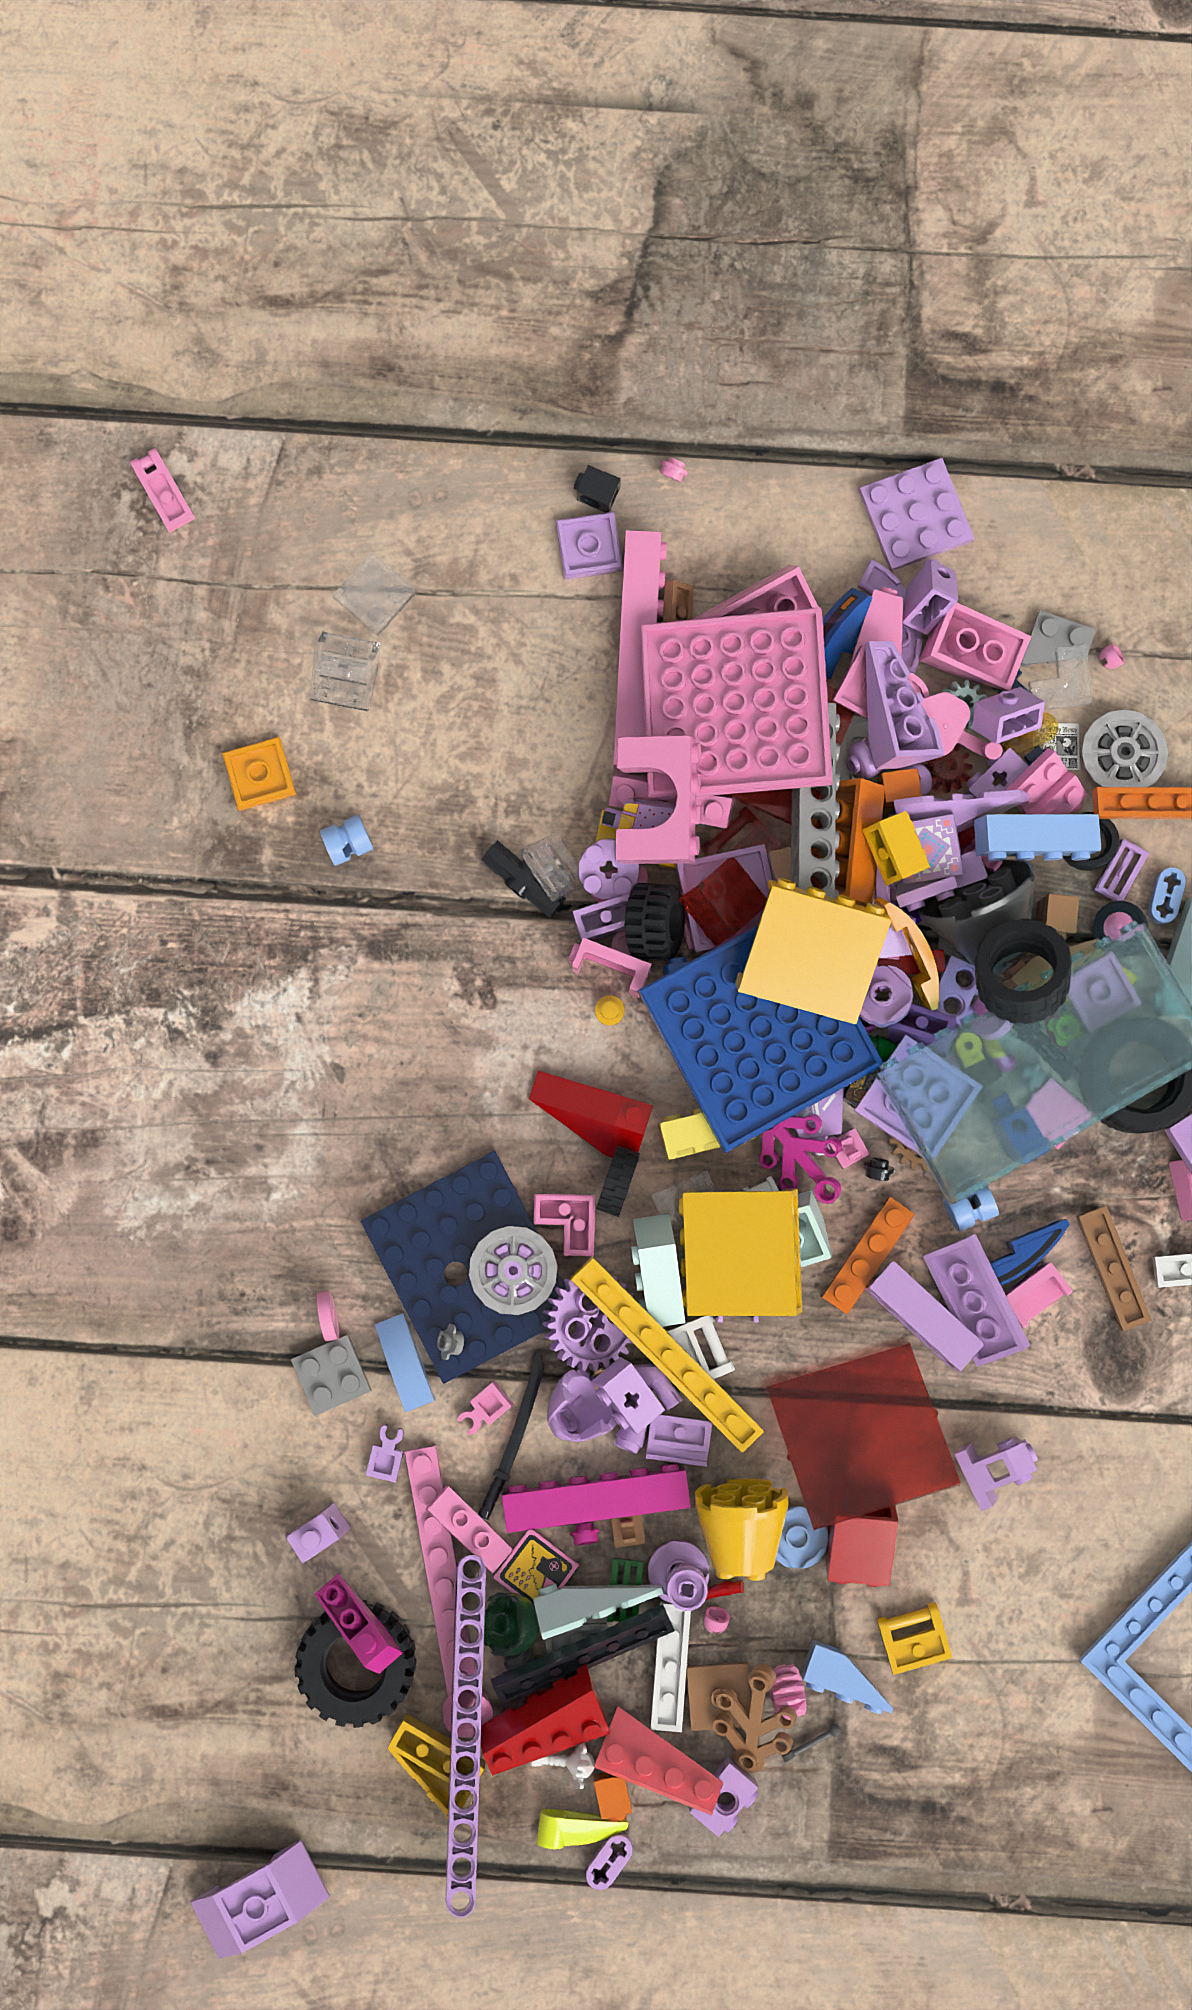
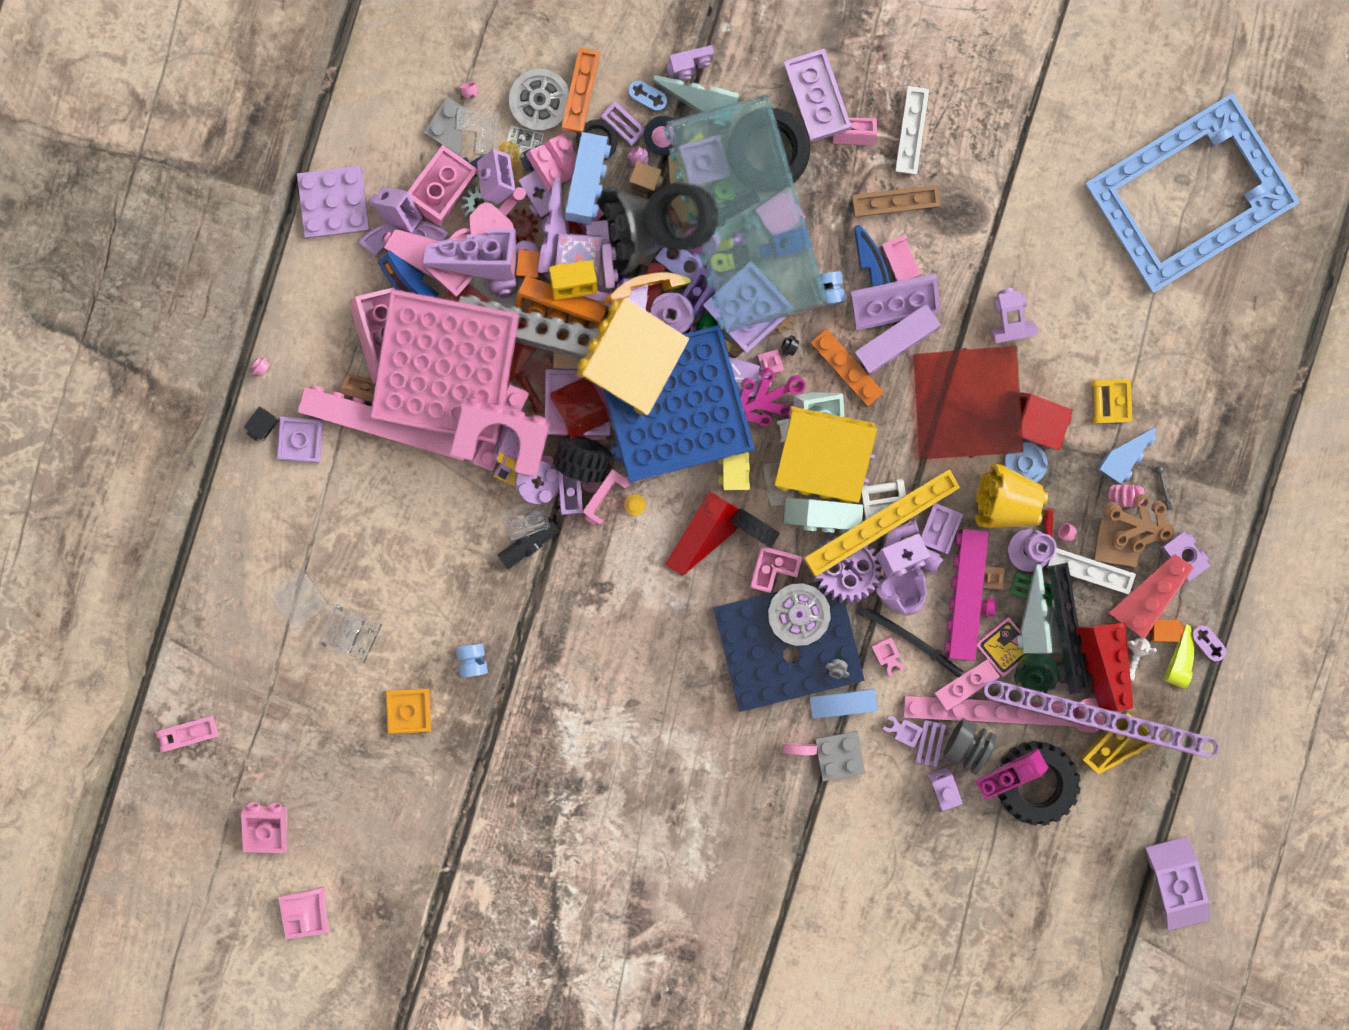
camera: 75 degrees left, 5 degrees up
(58, 619) = (264, 828): none -> bright pink plate
(351, 1498) = (926, 761): none -> lavender tile
(384, 1560) = (965, 744): none -> dark grey wheel
(1086, 901) = (638, 154): none -> bright pink plate

